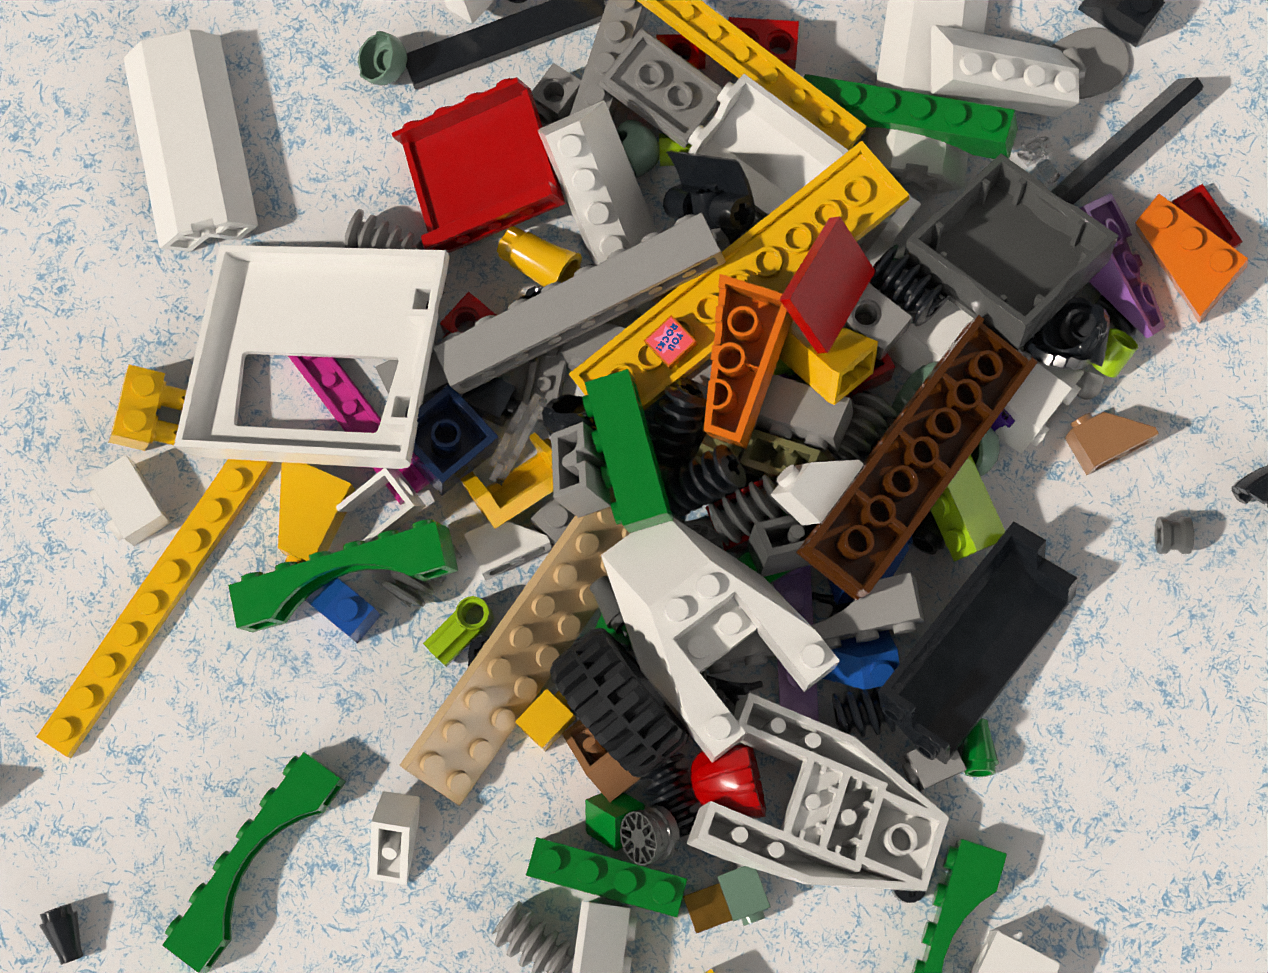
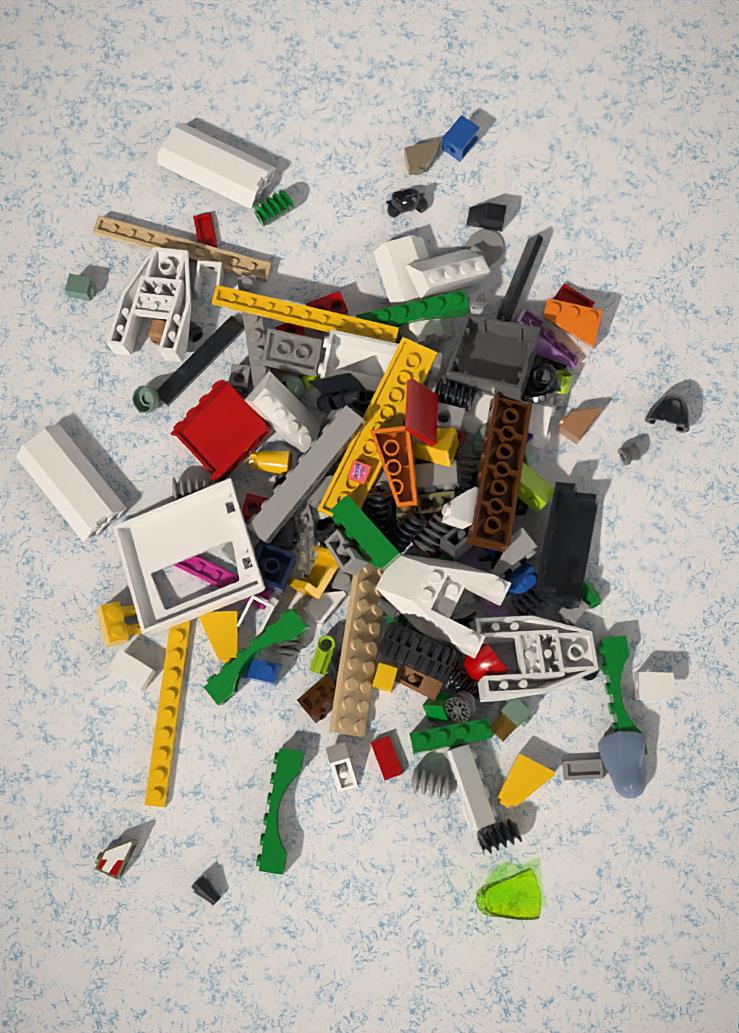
camera: 30 degrees left, 0 degrees up
(413, 701) = (319, 699): none -> reddish brown bracket
(480, 861) = (386, 758): none -> red tile

